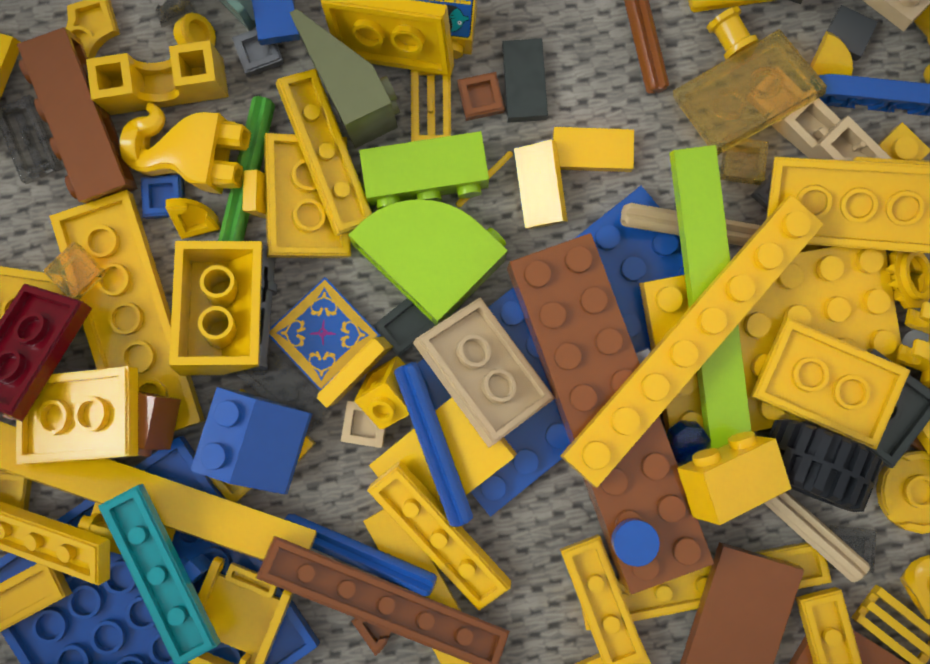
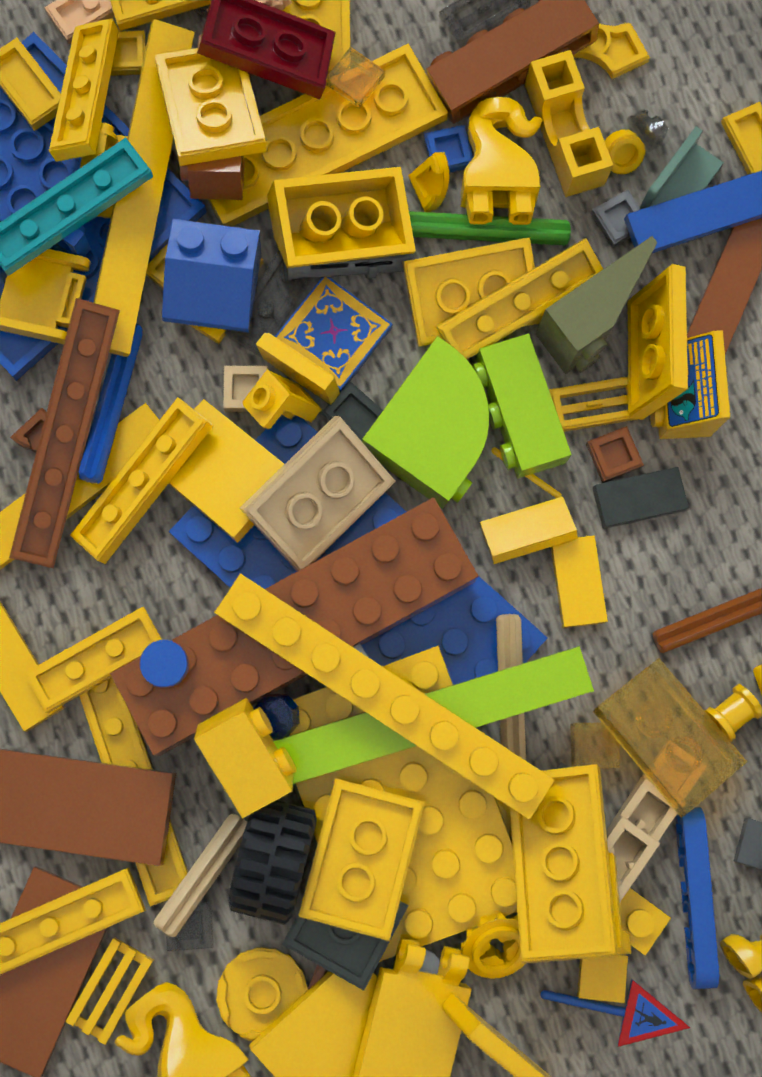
camera: 70 degrees right, 5 degrees down
(254, 193) = (466, 237): yellow tile -> none
(433, 444) = (234, 454): blue axle -> none
(832, 57) = (727, 829): yellow tile -> none

